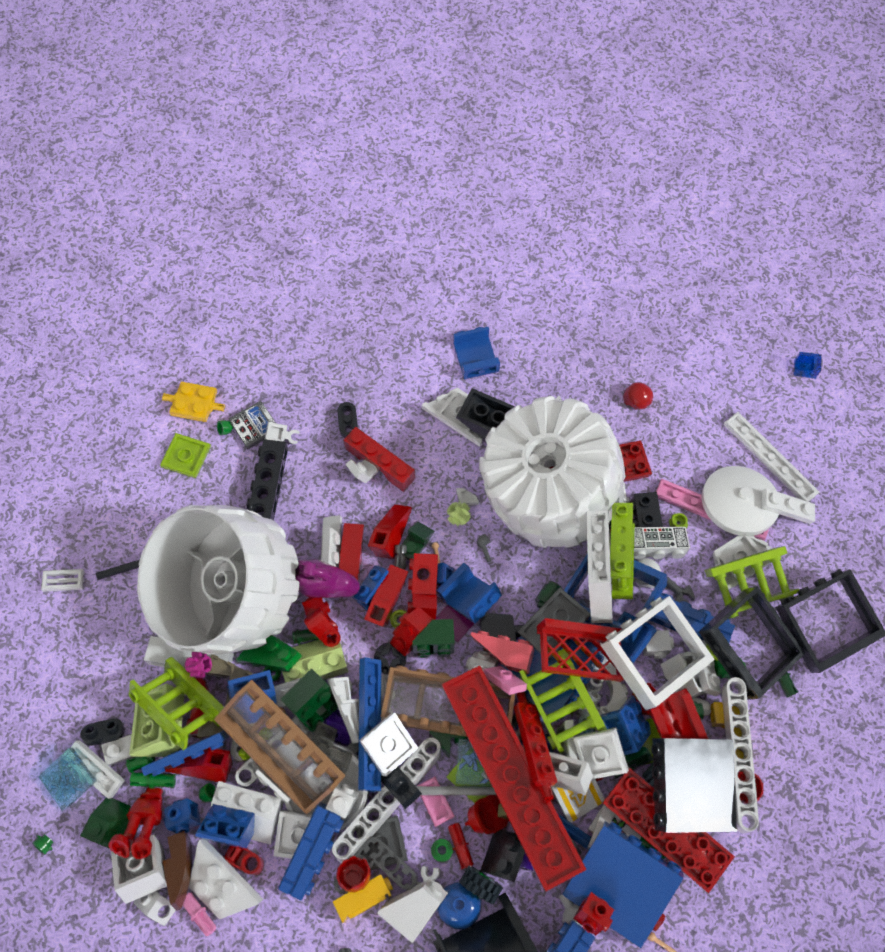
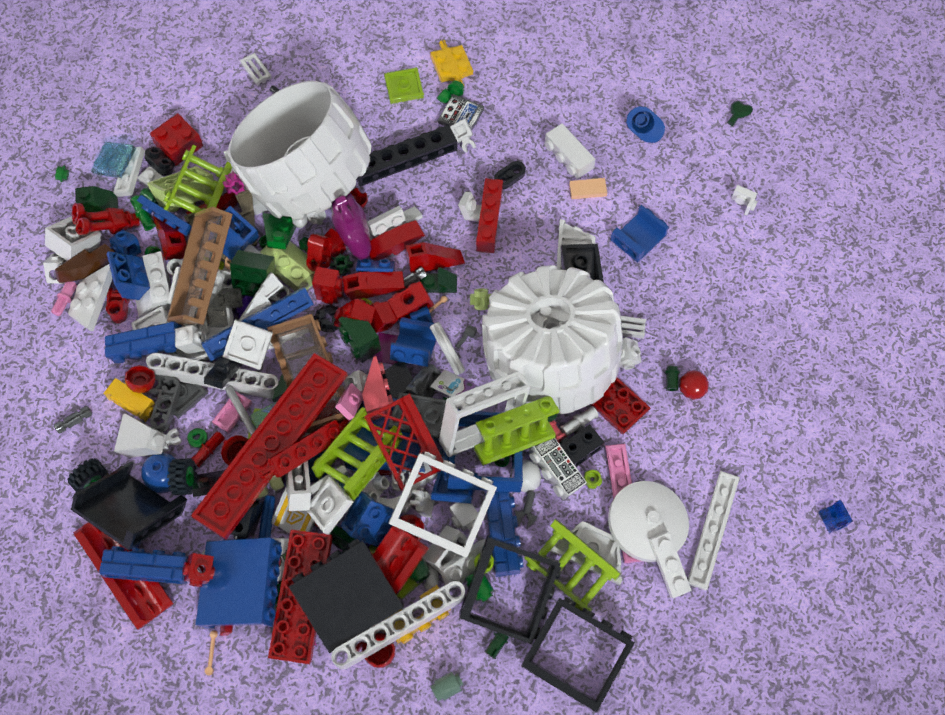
camera: 60 degrees right, 0 degrees up
(91, 700) = (175, 137): none -> red brick
(225, 412) = (456, 88): none -> green plate
(344, 609) = (342, 264): none -> dark green gear
(358, 358) = (569, 151): none -> white brick
(362, 638) = (328, 285): none -> red brick
(375, 285) = (645, 124): none -> blue piece
(403, 366) = (588, 188): none -> light nougat tile
(409, 212) = (738, 111): none -> dark green rock
(491, 568) = (447, 348): none -> white axle
(495, 255) = (745, 197): none -> white bracket
(514, 607) = (423, 380): none -> dark grey wing
(529, 584) = (451, 384): none -> white sticker
(623, 408) = (672, 378): none -> dark green pin
(805, 746) = (447, 686): none -> sand green brick

